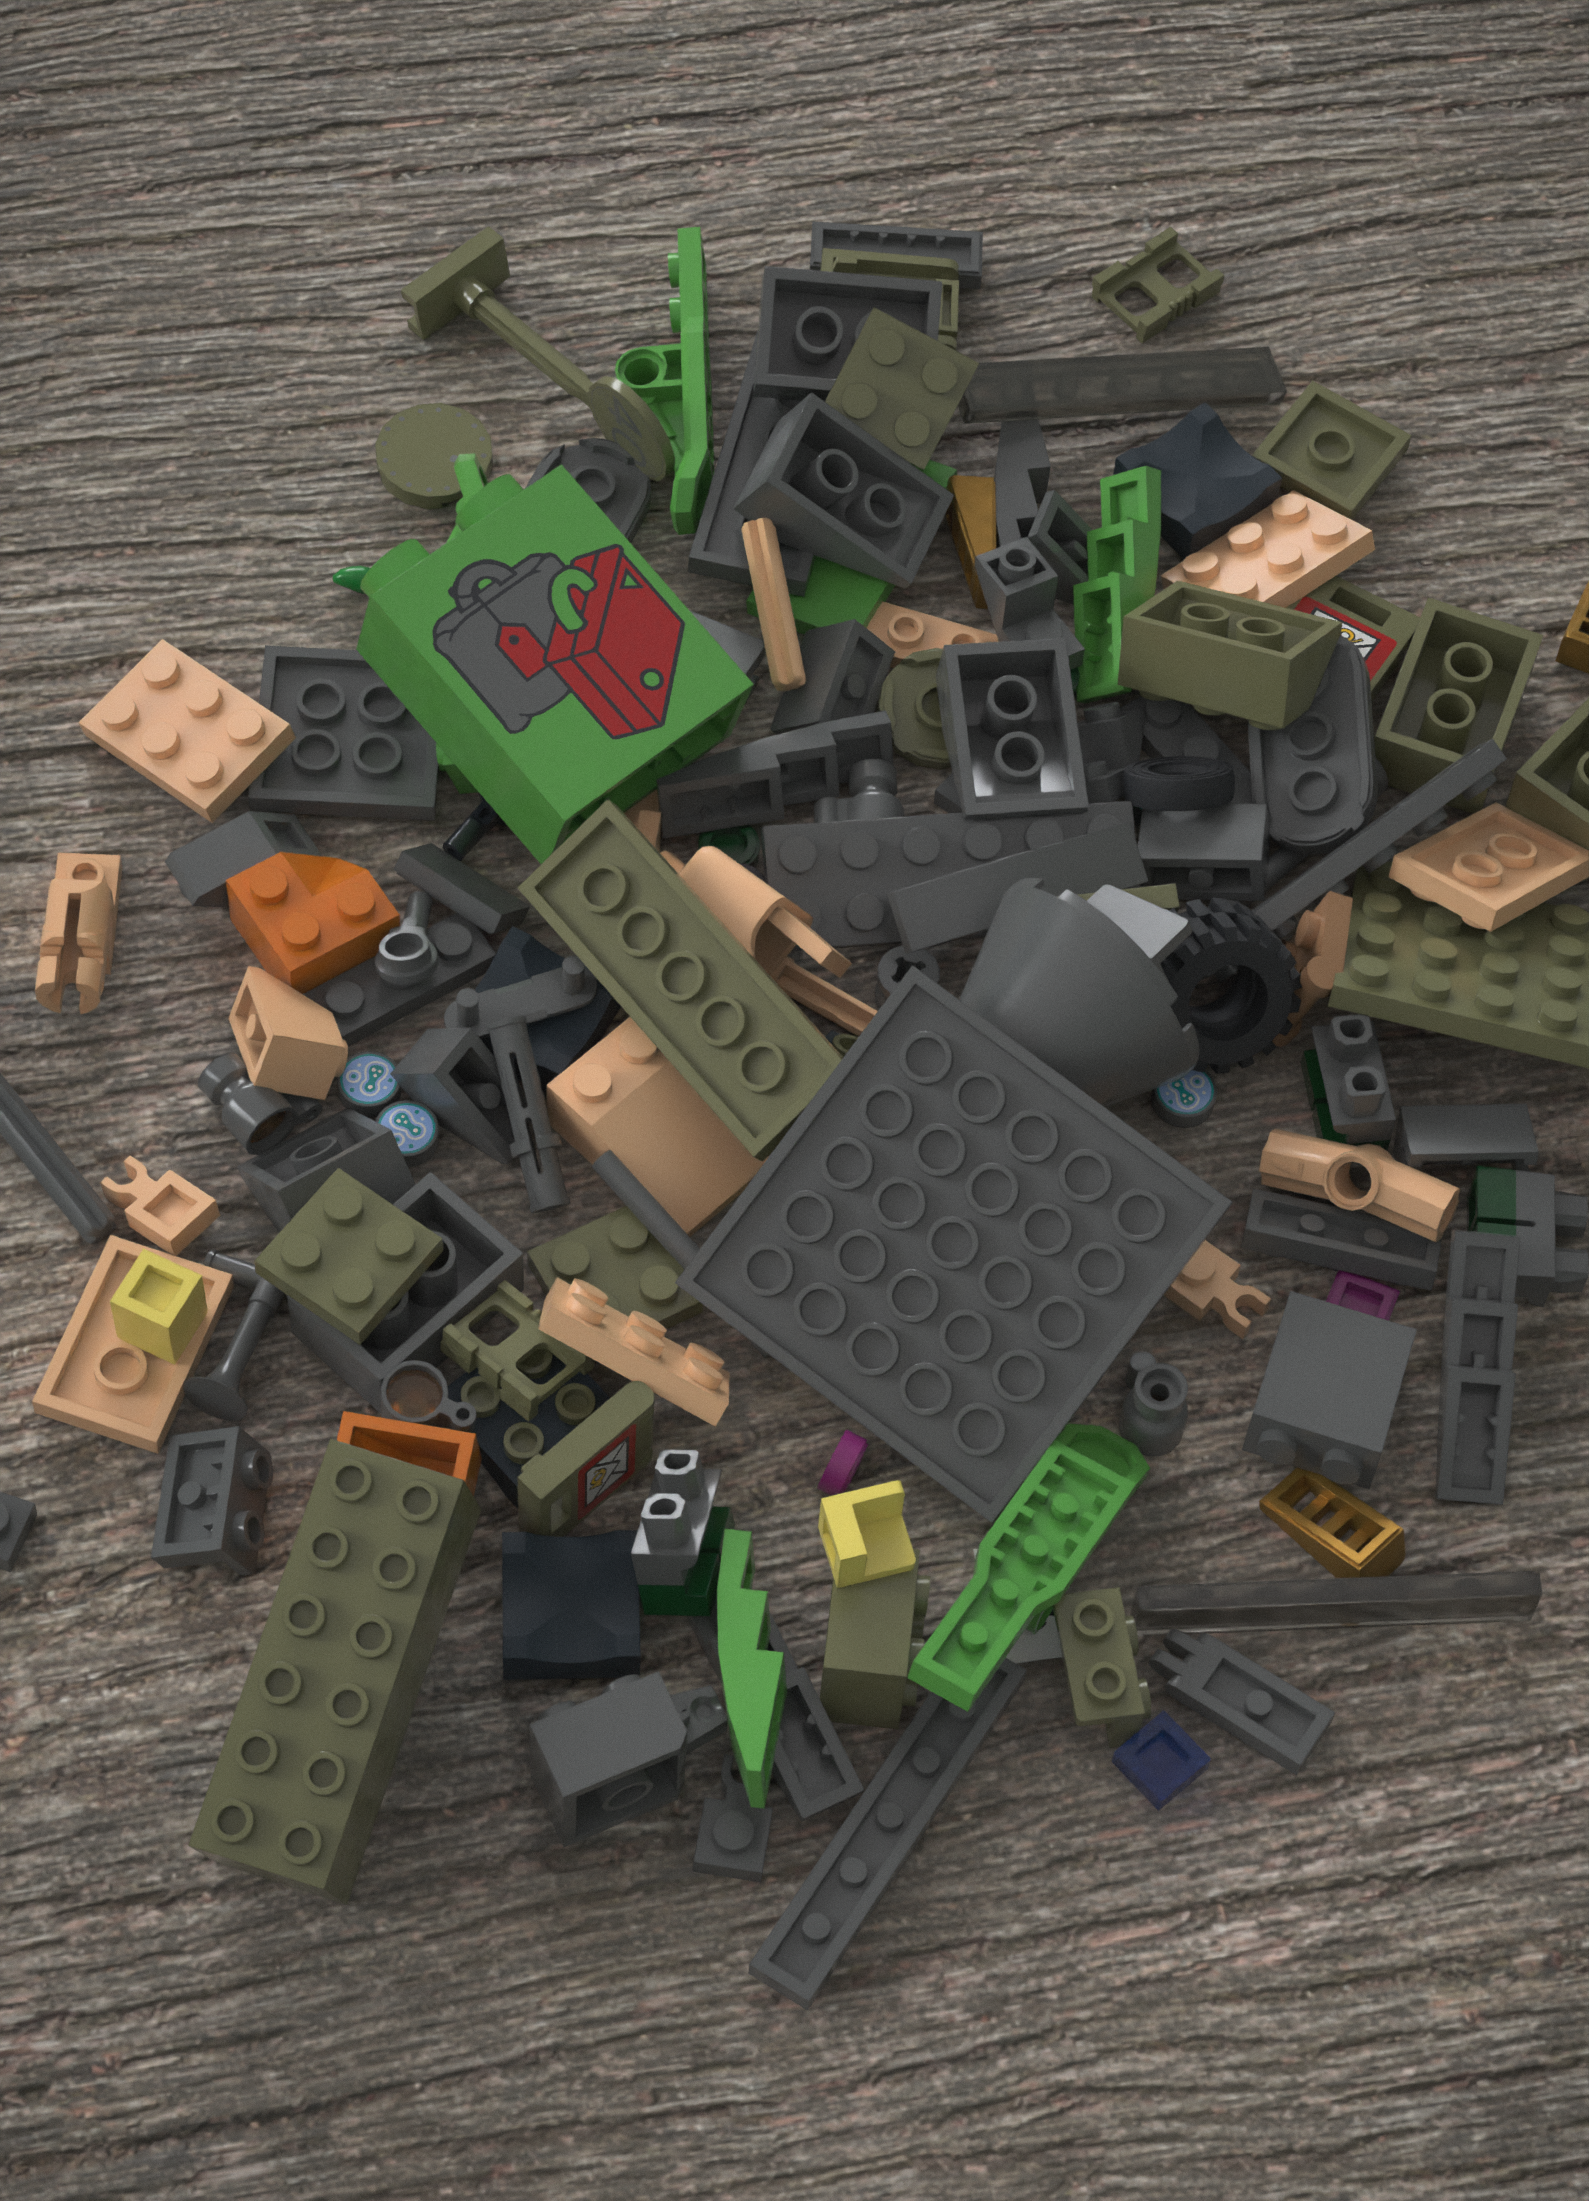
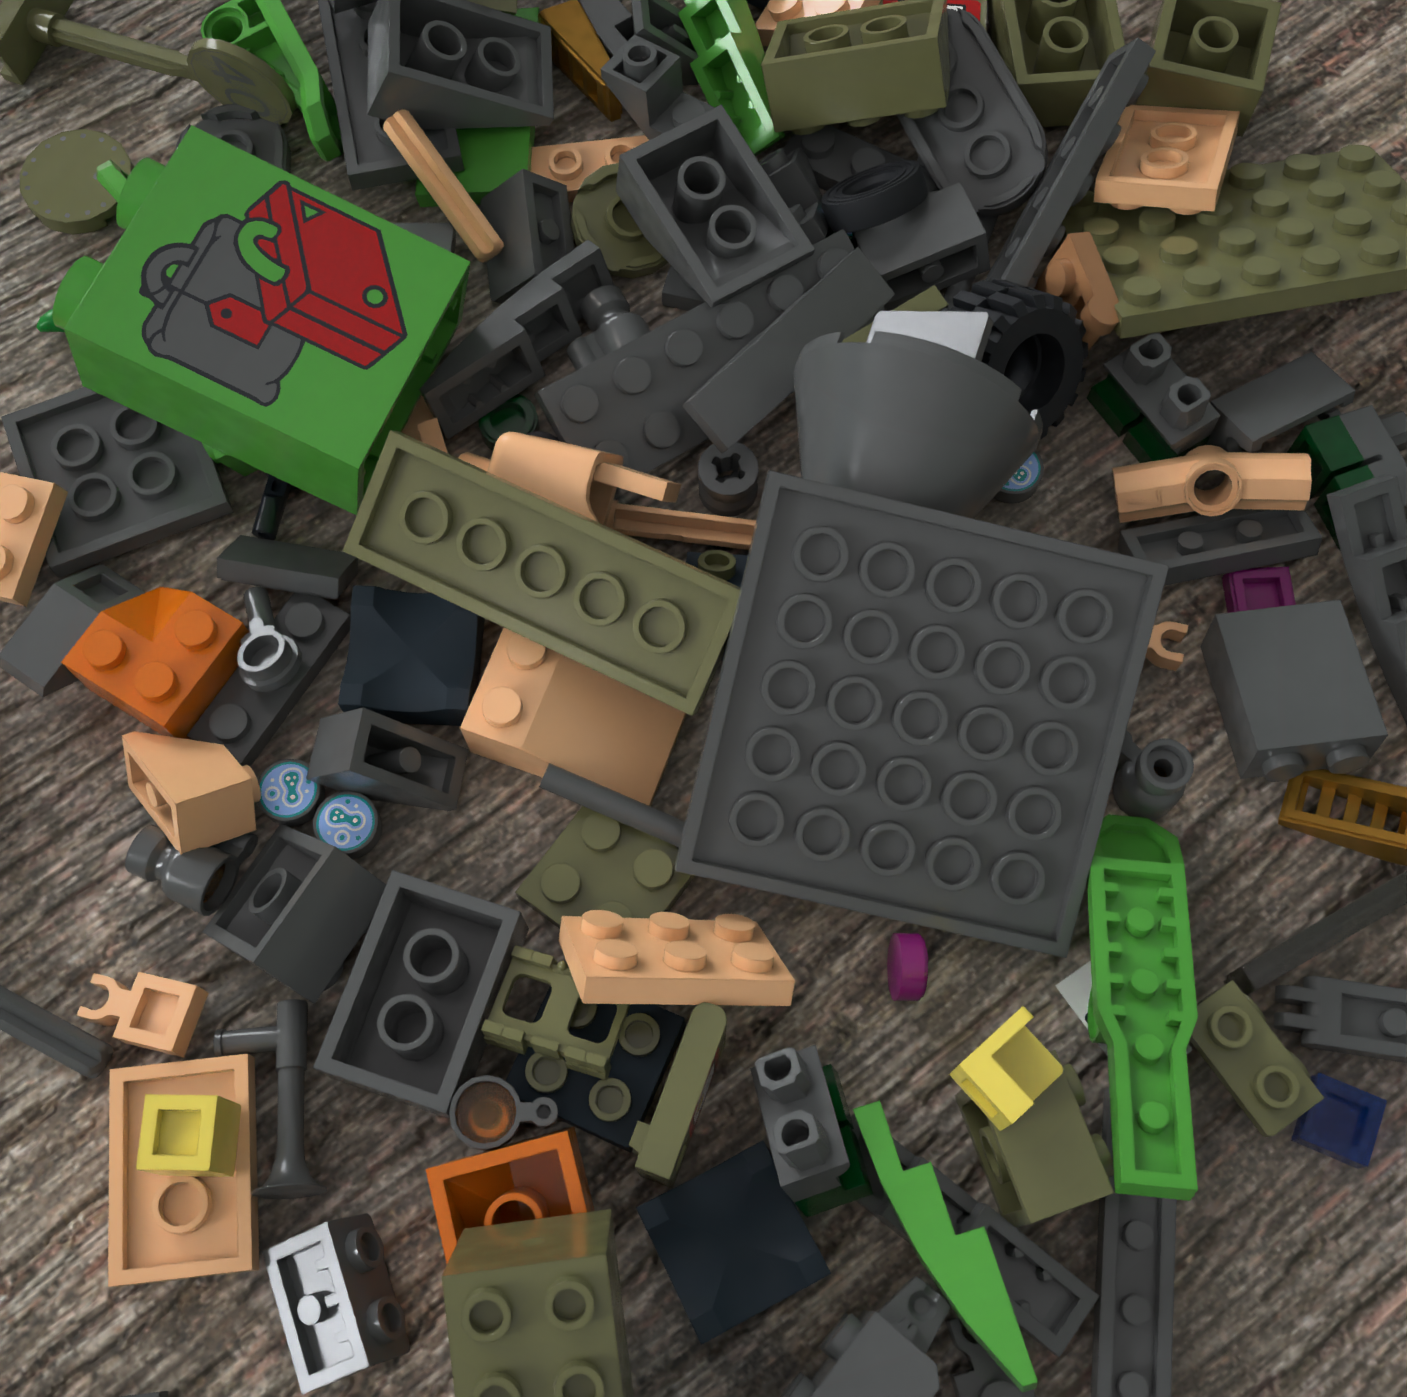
camera: 20 degrees left, 10 degrees up
(348, 1256) = (354, 999): olive plate -> none
(535, 998) = (396, 655): dark grey piece -> none
(547, 1189) = (502, 823): dark grey pin -> none

